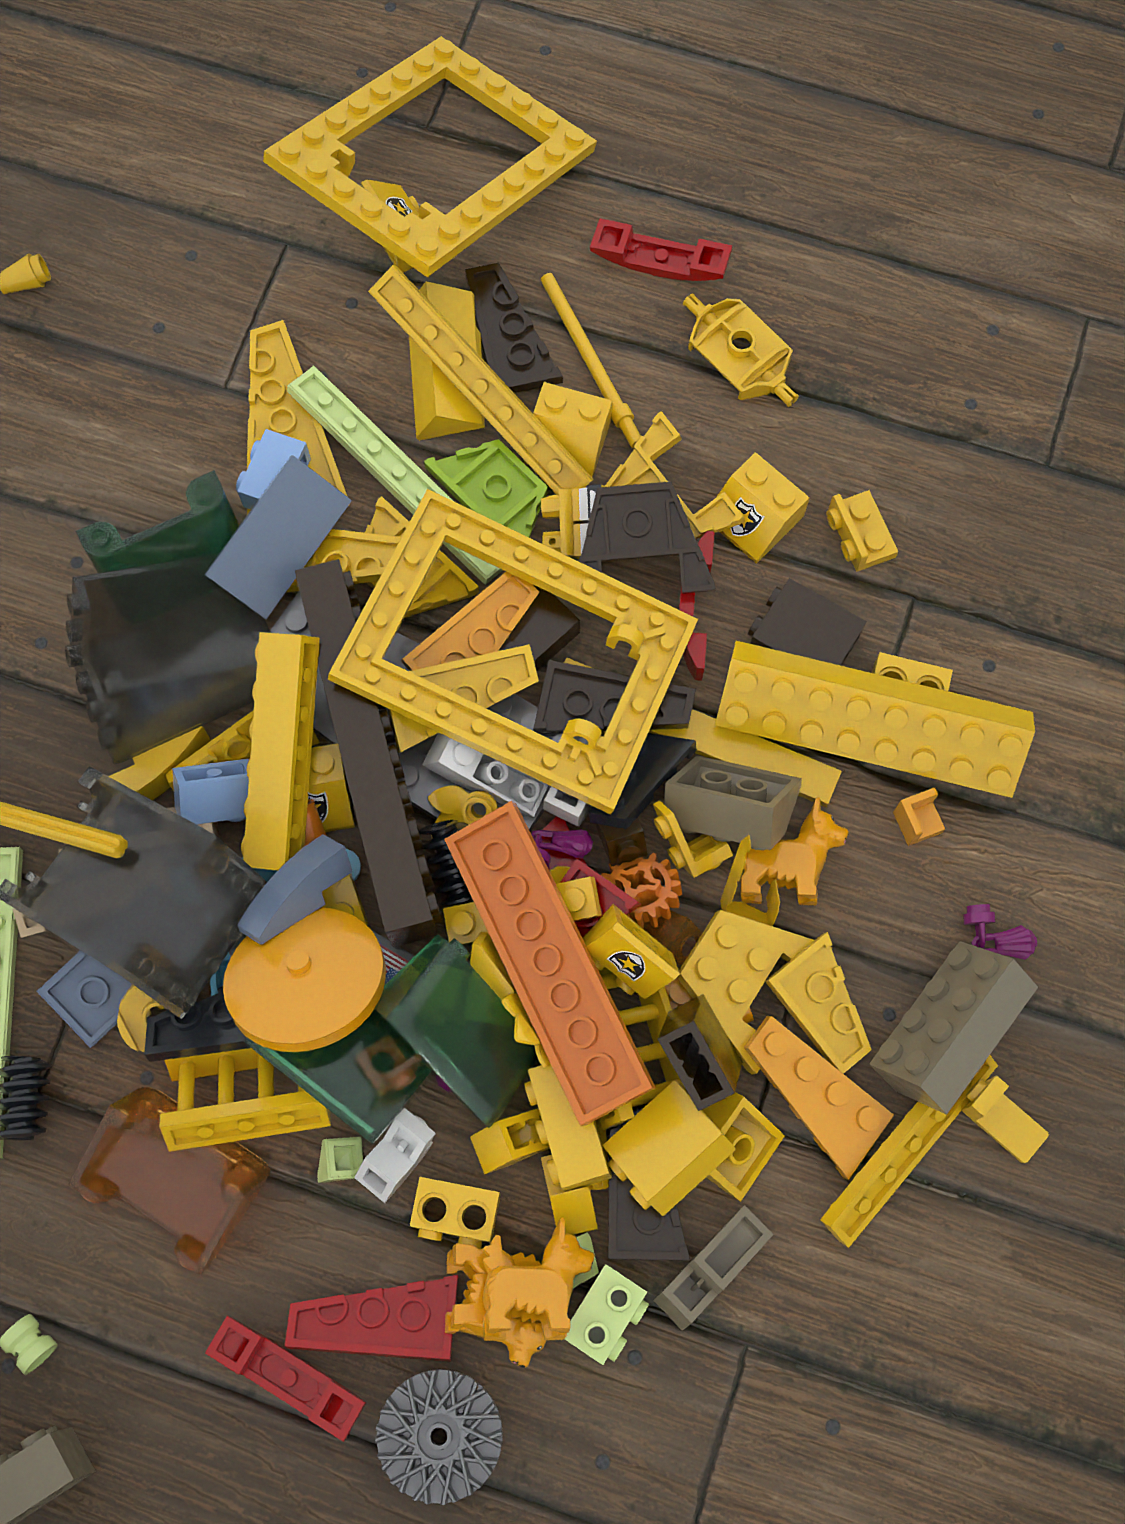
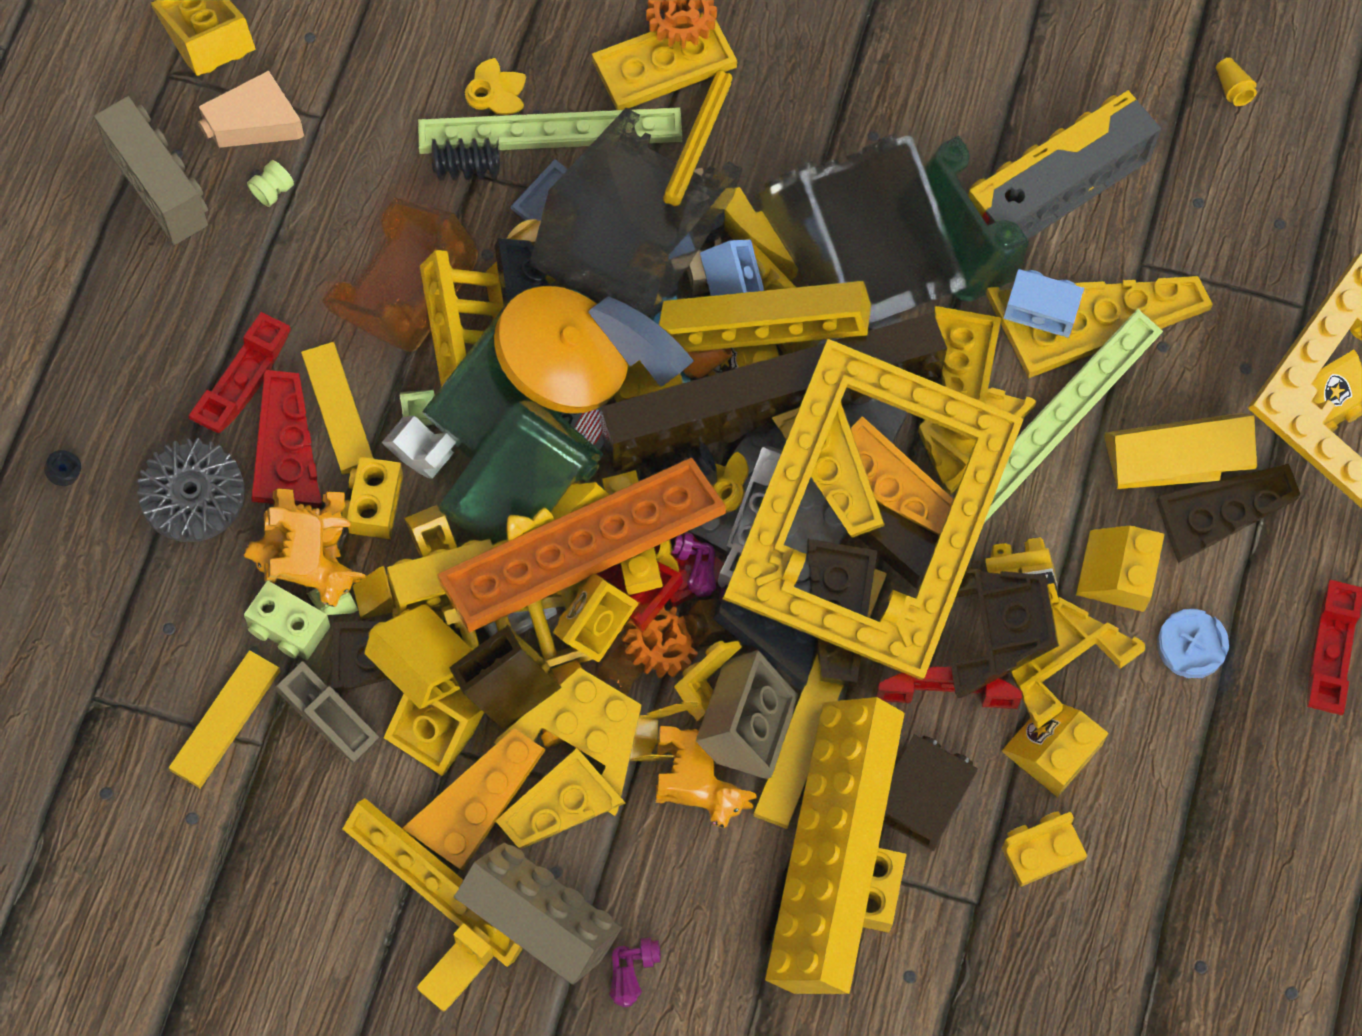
camera: 85 degrees right, 5 degrees down
(112, 435) = (1069, 166): none -> dark grey piece
(278, 537) = (978, 307): sand blue tile -> none
(333, 1257) = (336, 406): none -> yellow tile
(397, 1078) = (475, 423): clear orange bracket -> none
(478, 382) = (1150, 472): yellow tile -> none
(492, 484) = (1053, 502): lime wing -> none
(621, 412) = (1149, 617): yellow bar -> none
(648, 378) = (1192, 643): none -> light blue tile
(719, 1389) = (224, 719): none -> yellow tile
(750, 370) = (1218, 752): yellow plate -> none
(919, 817) = (744, 897): light orange panel -> none

